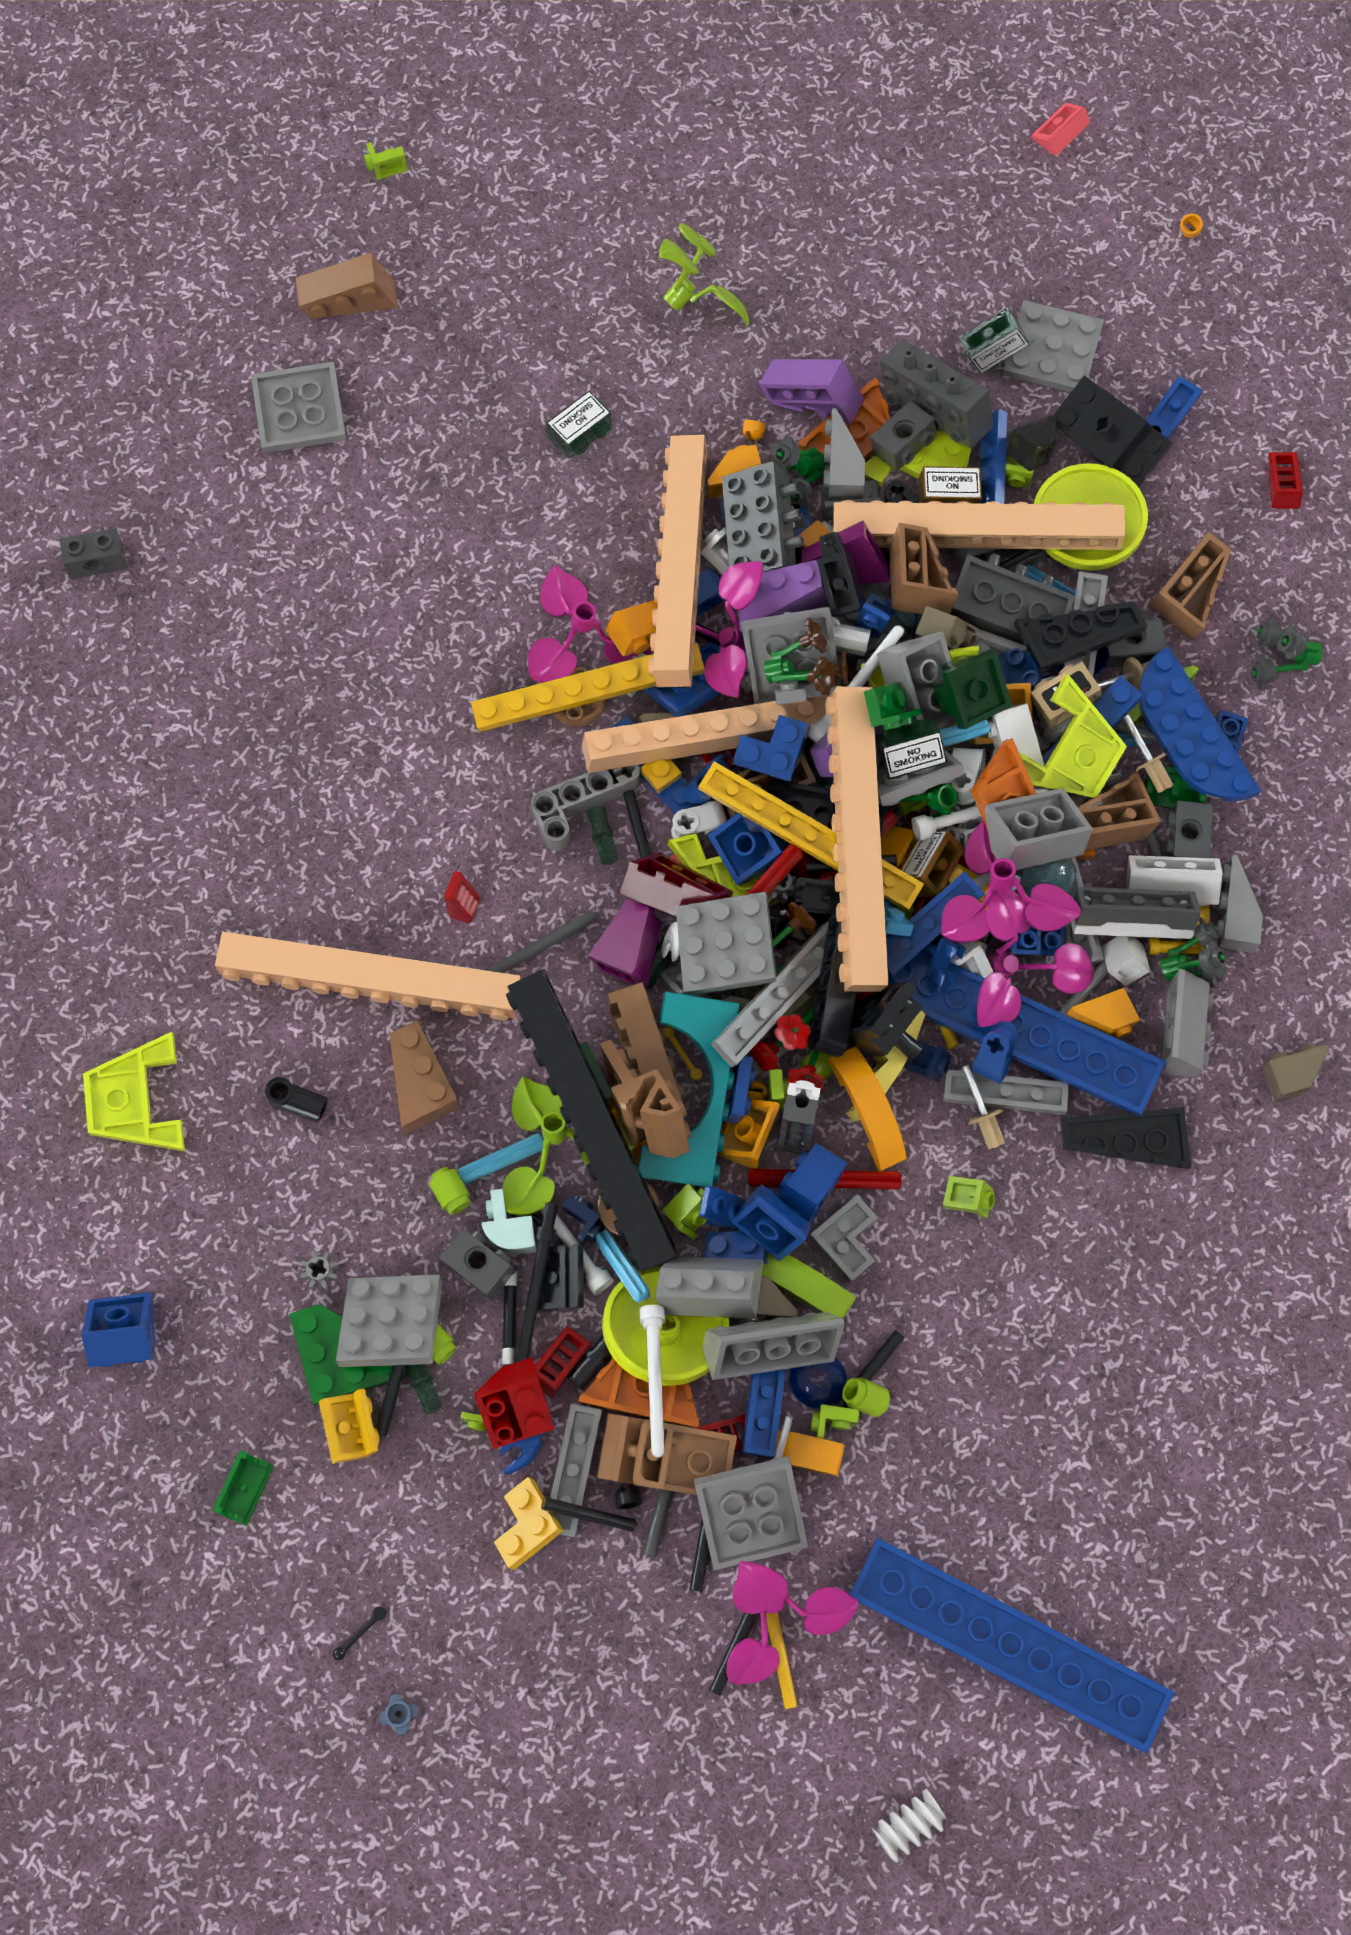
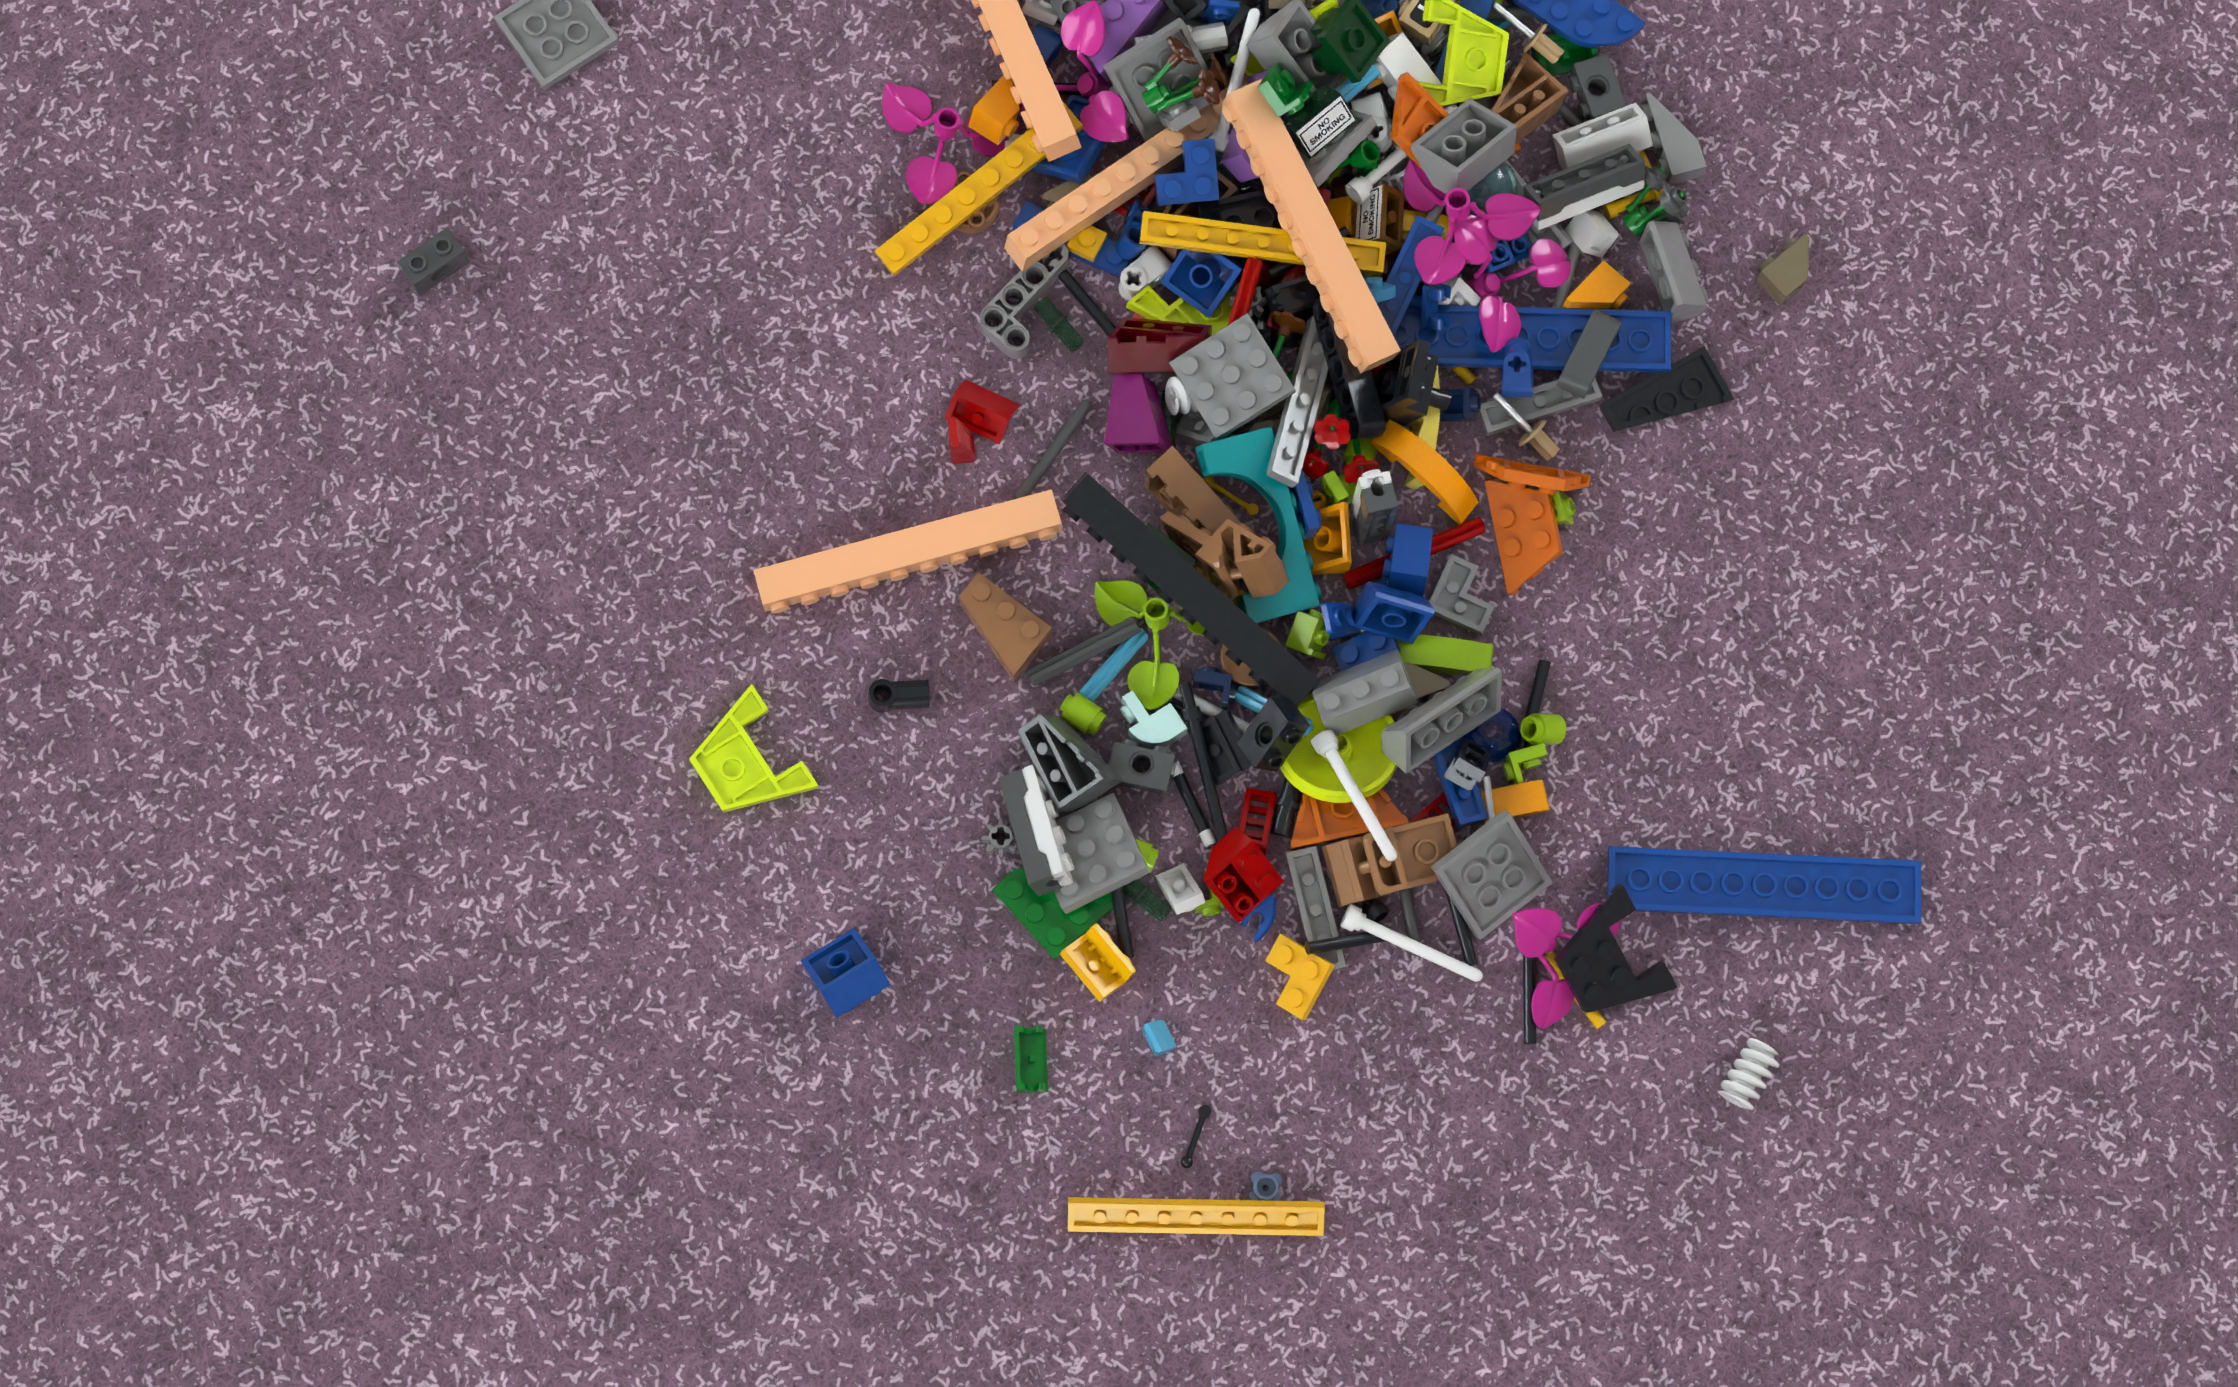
camera: 30 degrees left, 5 degrees up
(320, 1711) = (1196, 1216): none -> yellow plate
(350, 1277) = (1036, 831): none -> piece
(371, 1522) = (1158, 1037): none -> medium azure slope
(409, 1228) = (1066, 763): none -> dark grey wedge
(455, 1392) = (1180, 889): none -> white plate
(479, 1134) = (1083, 651): none -> dark grey axle
(496, 880) = (982, 411): none -> red panel
(605, 1499) = (1356, 920): none -> white piece
(606, 1286) = (1273, 734): none -> black brick
(778, 1397) = (1468, 764): none -> black slope
(810, 1653) = (1597, 966): none -> black wing
(935, 1204) = (1523, 531): none -> orange wing
(976, 1163) = (1522, 474): none -> orange wing
(1069, 1066) = (1589, 353): none -> dark grey beam

